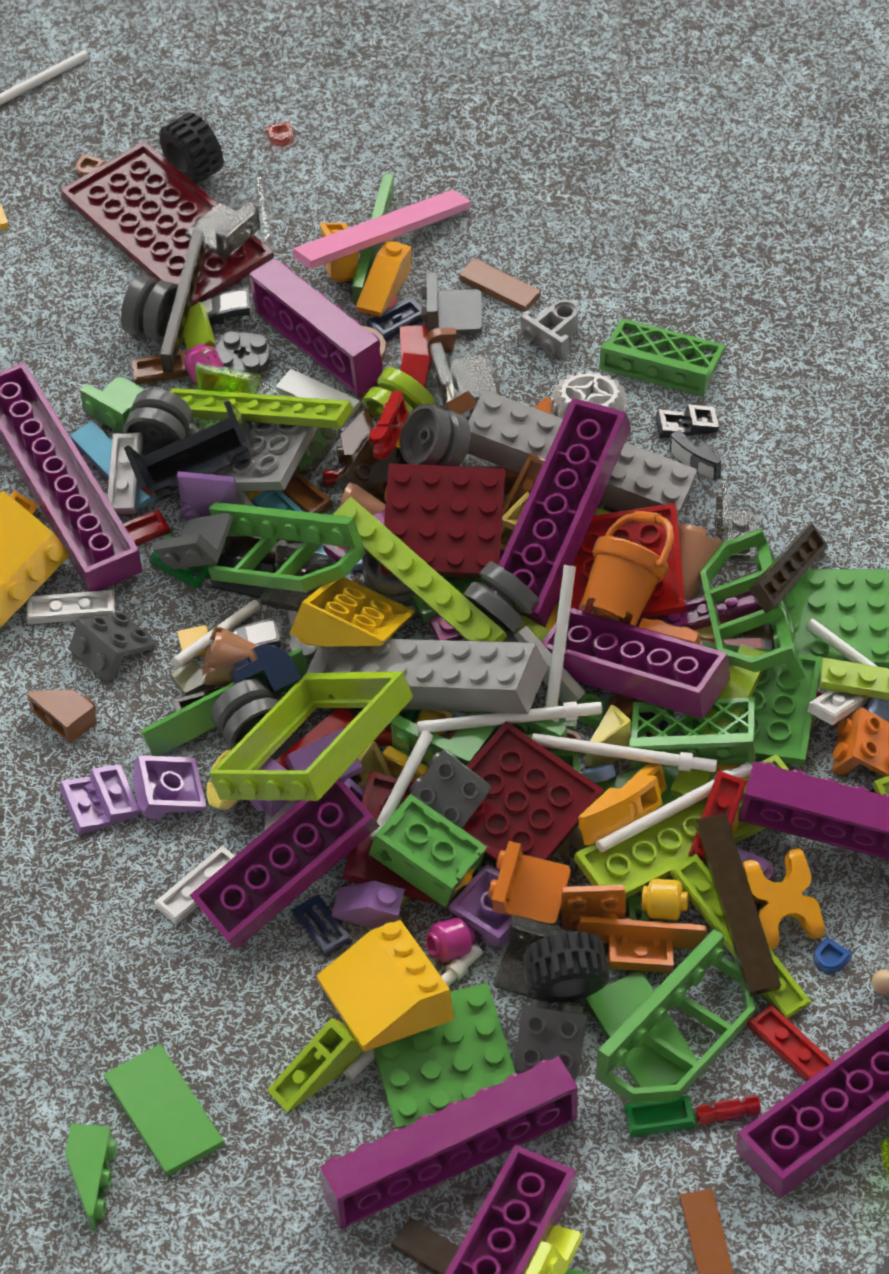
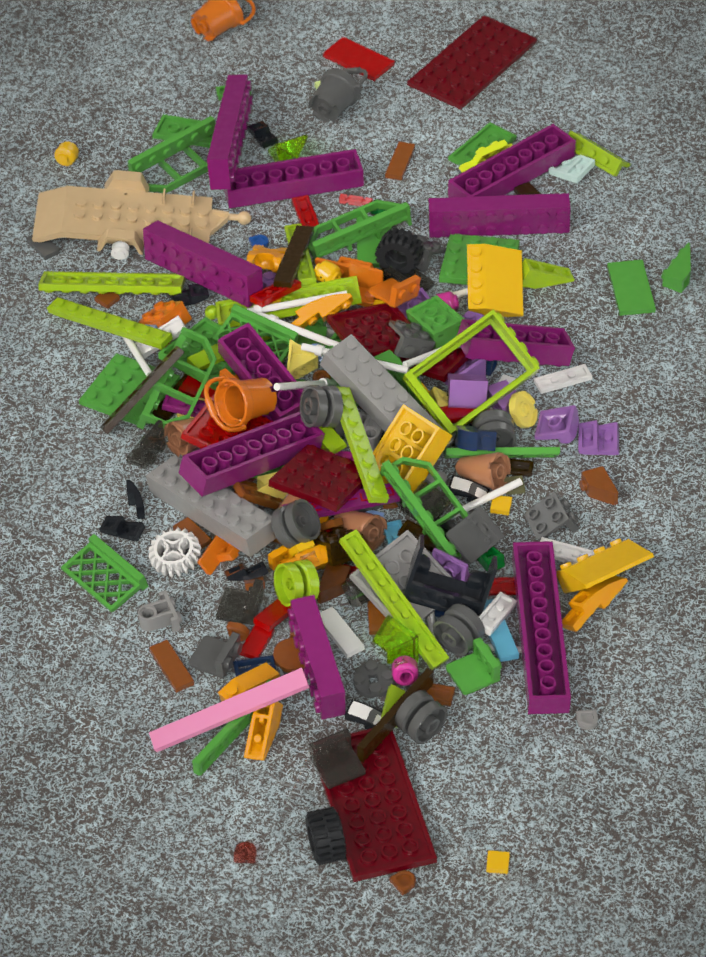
camera: 155 degrees left, 5 degrees down
(389, 425) = (321, 533): red hinge -> none

